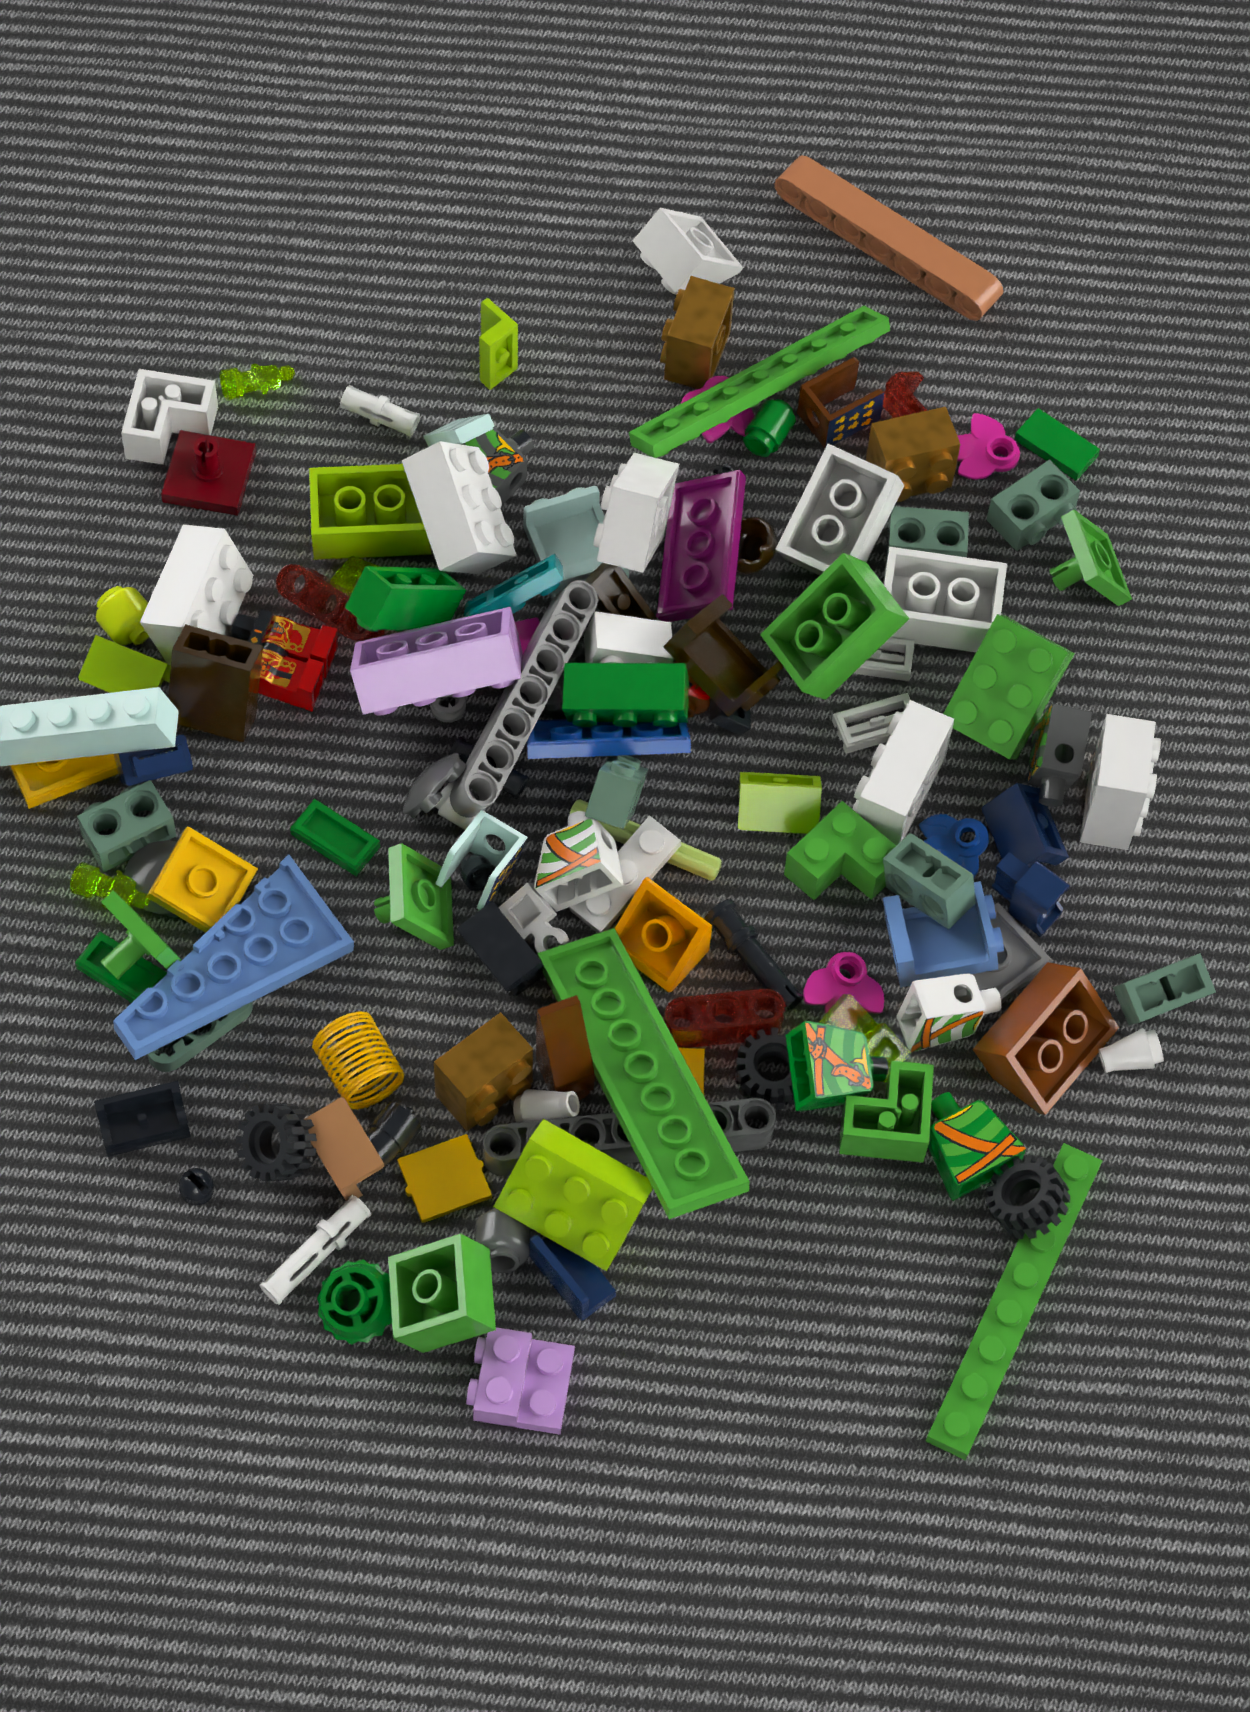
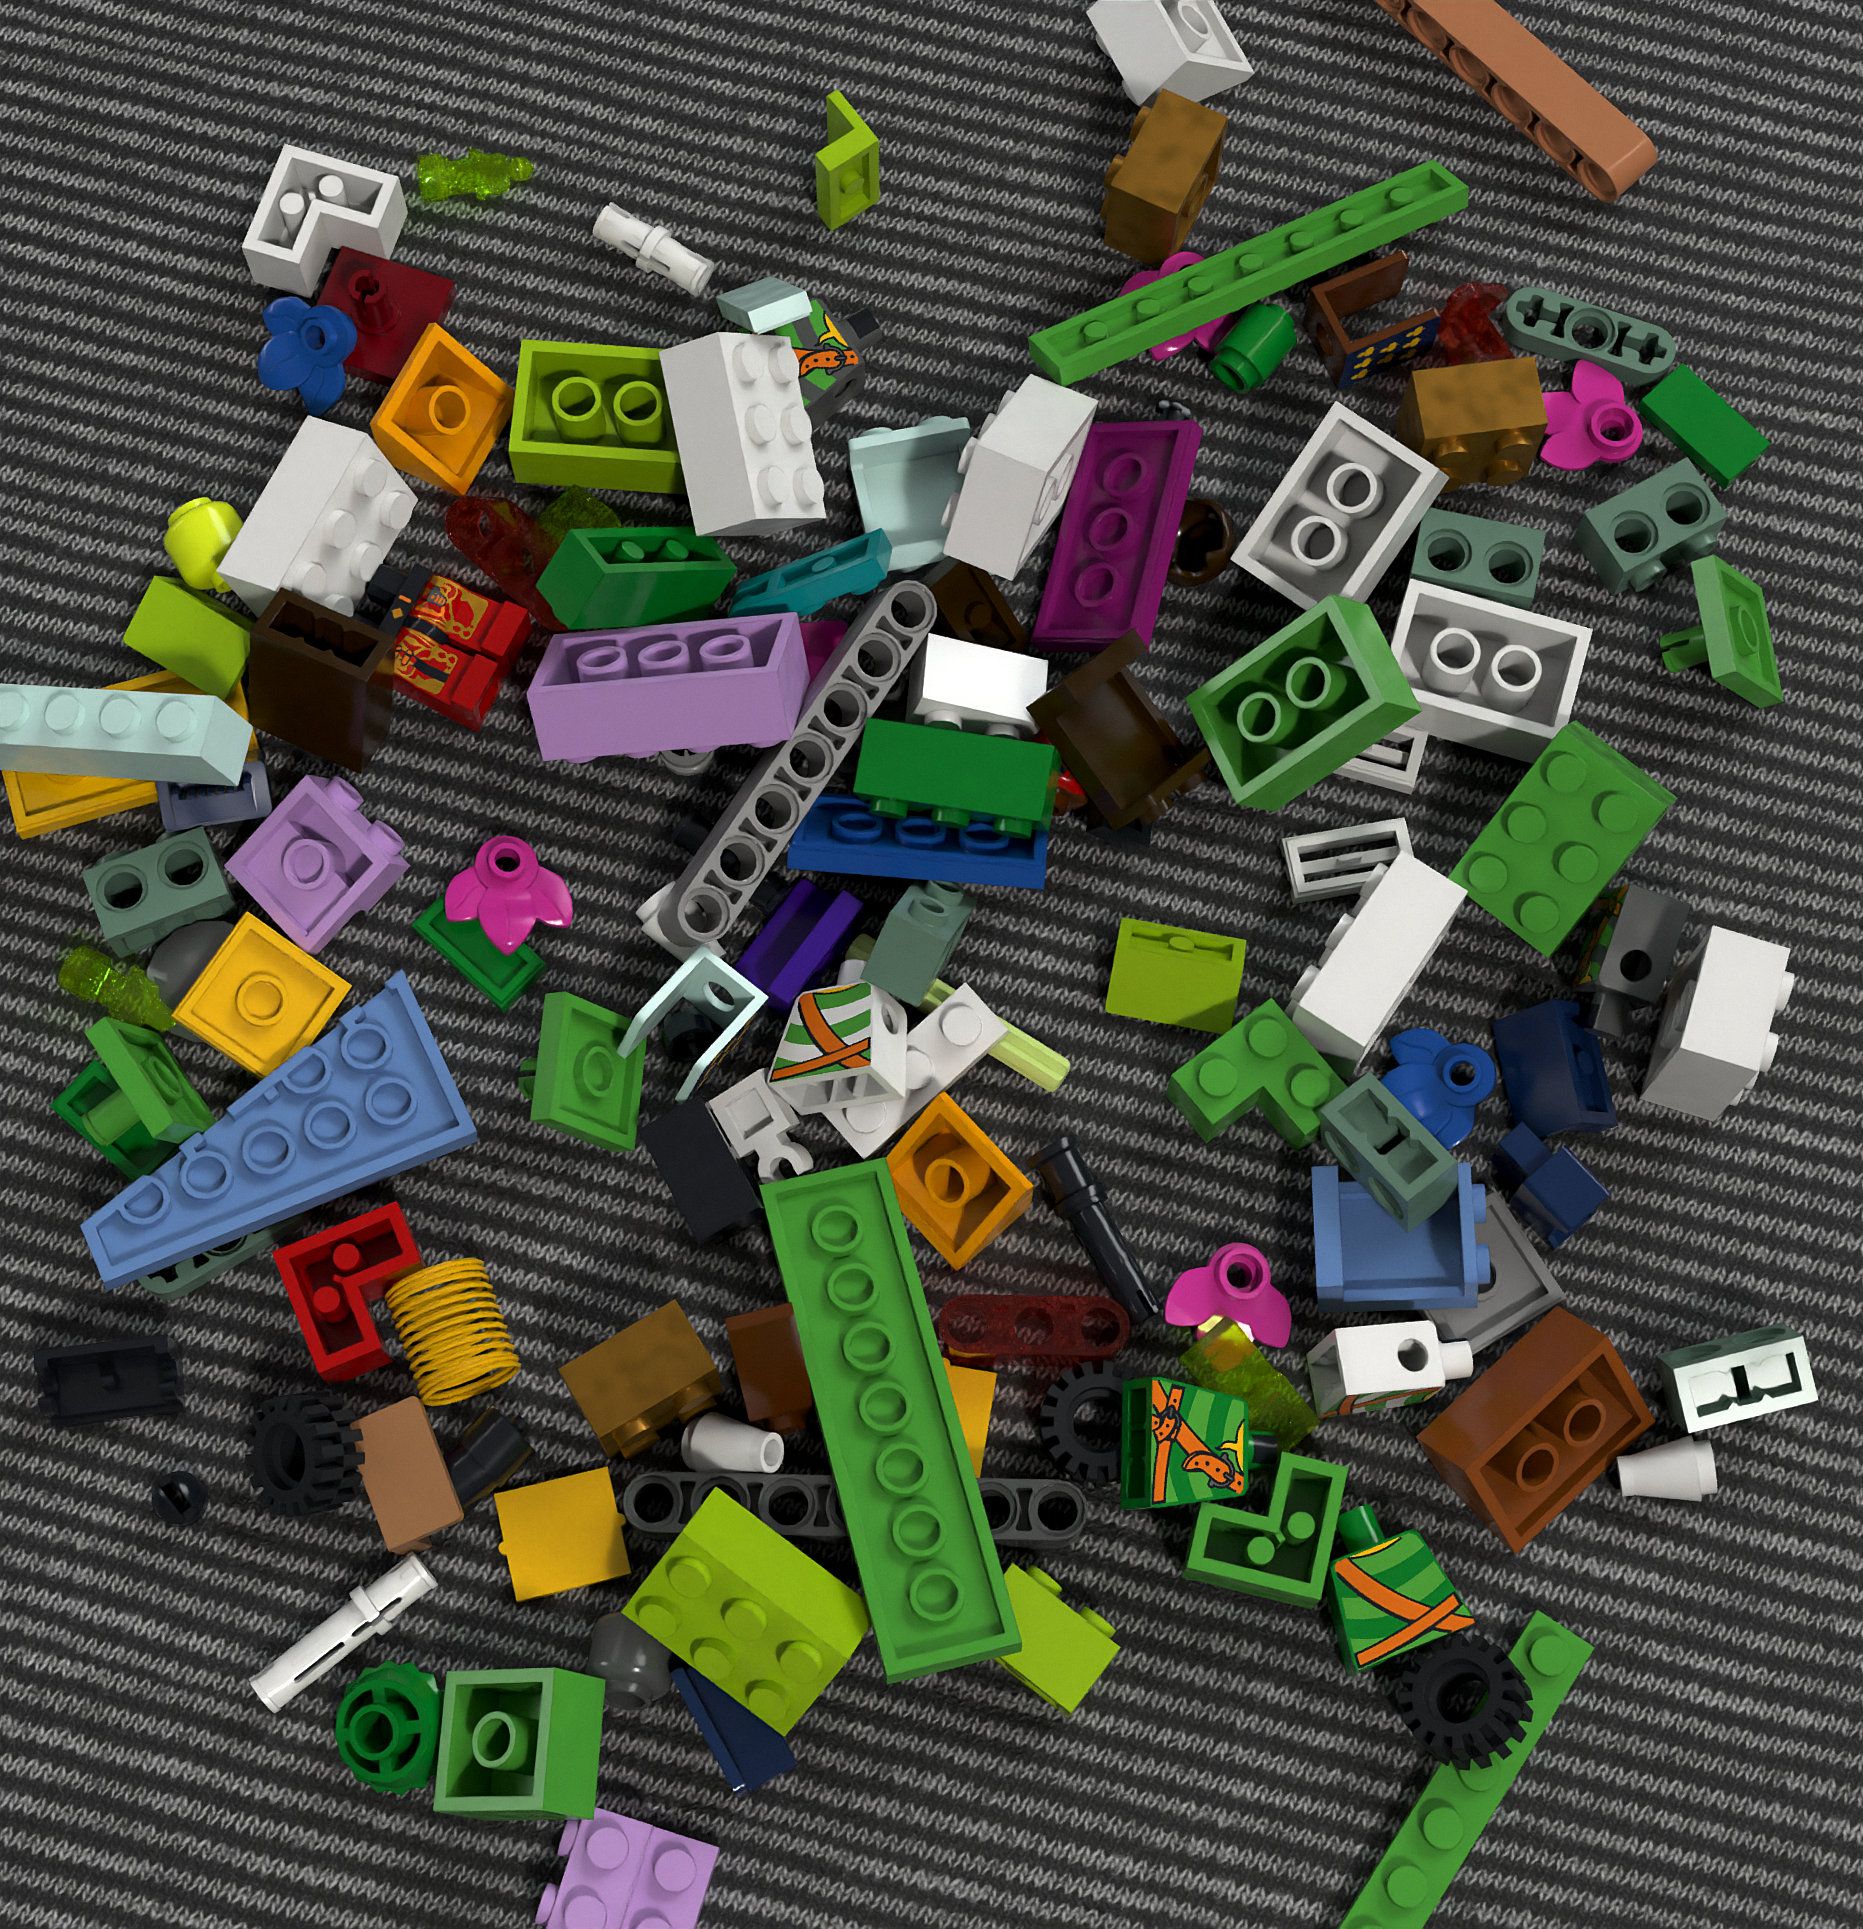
camera: 10 degrees right, 10 degrees up
(164, 498) = (299, 355): none -> blue plate
(225, 795) = (318, 861): none -> lavender plate
(263, 520) = (442, 413): none -> light orange slope
(280, 1041) = (335, 1279): none -> red brick
(349, 805) = (508, 900): none -> dark pink plate
(424, 791) = (621, 897): dark grey dish -> none
(542, 809) = (800, 944): none -> dark purple panel
(771, 1203) = (1060, 1648): none -> lime brick
(968, 386) = (1610, 323): none -> sand green beam

